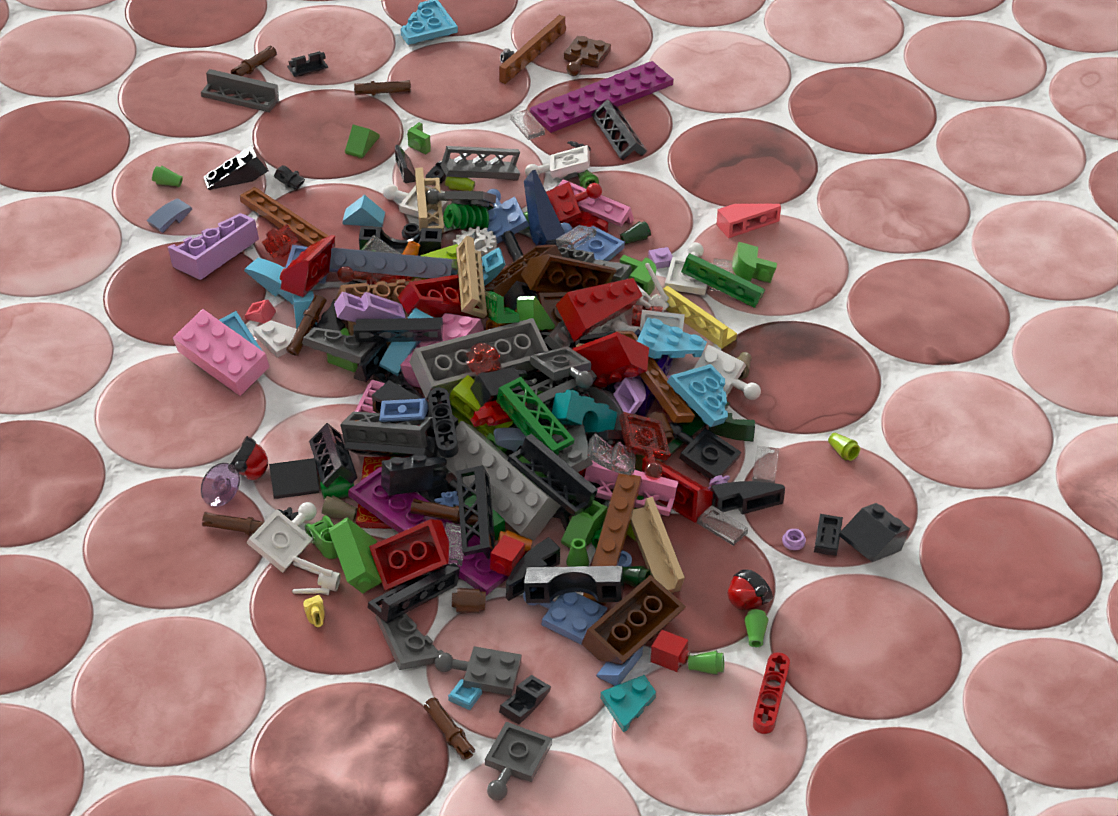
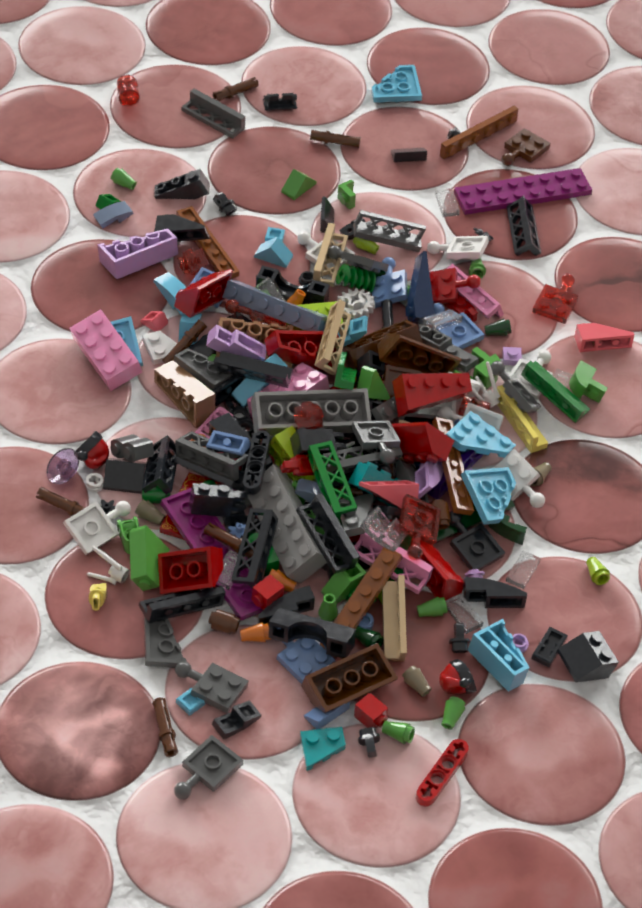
camera: 15 degrees right, 5 degrees up
(135, 87) = (128, 90): none -> clear red wheel
(155, 203) = (105, 200): none -> green slope
(257, 208) = (182, 228): none -> black slope
(262, 493) = (94, 487): none -> white bush
(292, 445) = (132, 448): none -> dark grey brick
(328, 375) = (186, 392): none -> medium nougat wedge
(354, 194) = (273, 233): none -> medium azure tile
(467, 87) = (409, 154): none -> black slope
(509, 603) = (256, 633): none -> orange cone
(602, 416) = (391, 490): none -> coral slope
(680, 679) = (368, 738): none -> black piece
(681, 286) = (515, 389): none -> dark grey plate
(683, 194) = (556, 302): none -> clear red plate
(688, 527) = (433, 607): none -> bright green cone
(704, 605) = (416, 680): none -> dark tan cone
(731, 554) = (459, 643): none -> black piece
(782, 556) = (499, 655): none -> medium azure wedge

